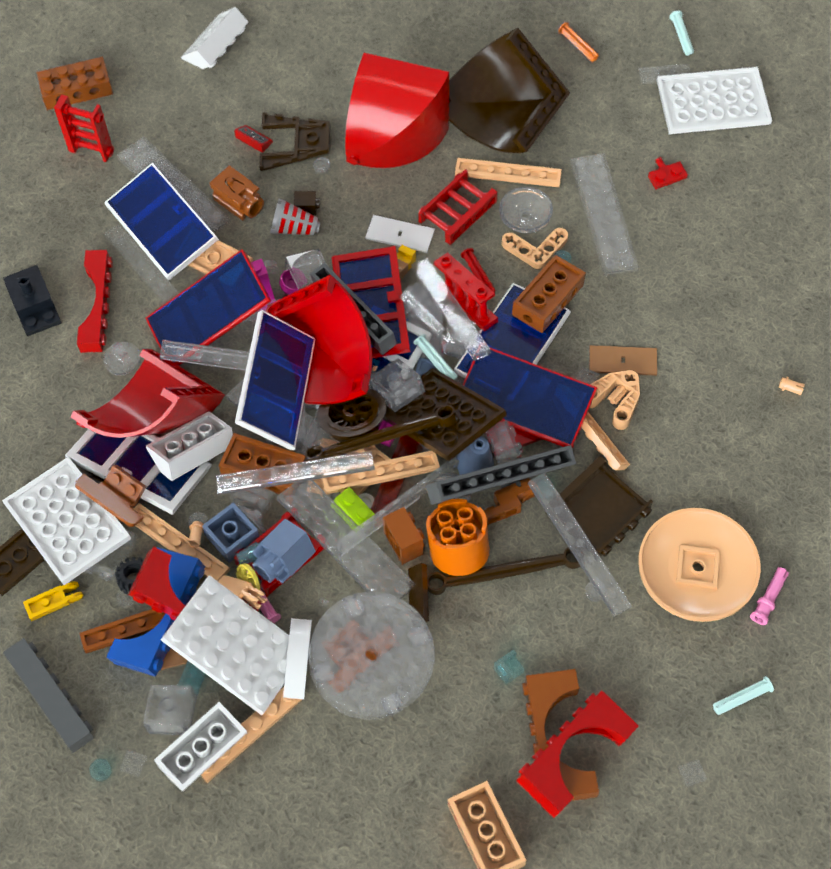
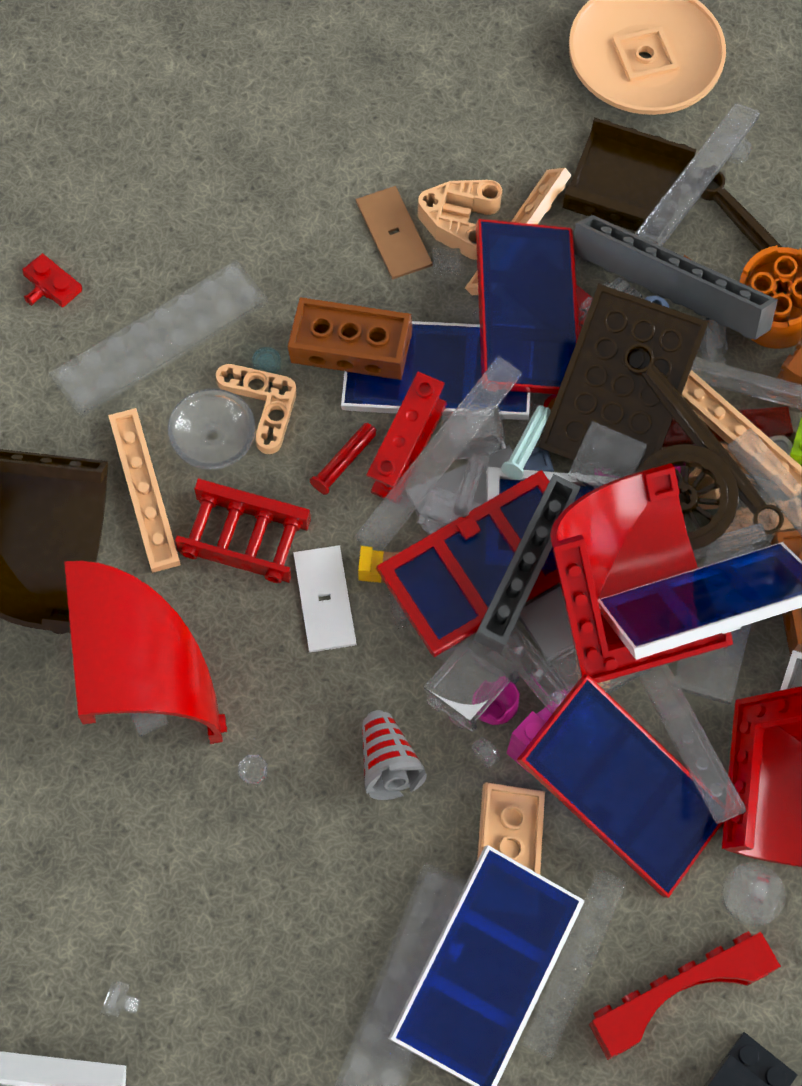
camera: 120 degrees left, 5 degrees up
(238, 195) = (379, 867): dark orange piece -> none
(241, 75) = (118, 1000): none -> clear tile
(253, 138) = (242, 913): red slope -> none
(307, 201) = (340, 756): dark brown brick -> none
(311, 140) = (205, 814): dark brown wing -> none
(792, 386) = (338, 40): light nougat pin -> none

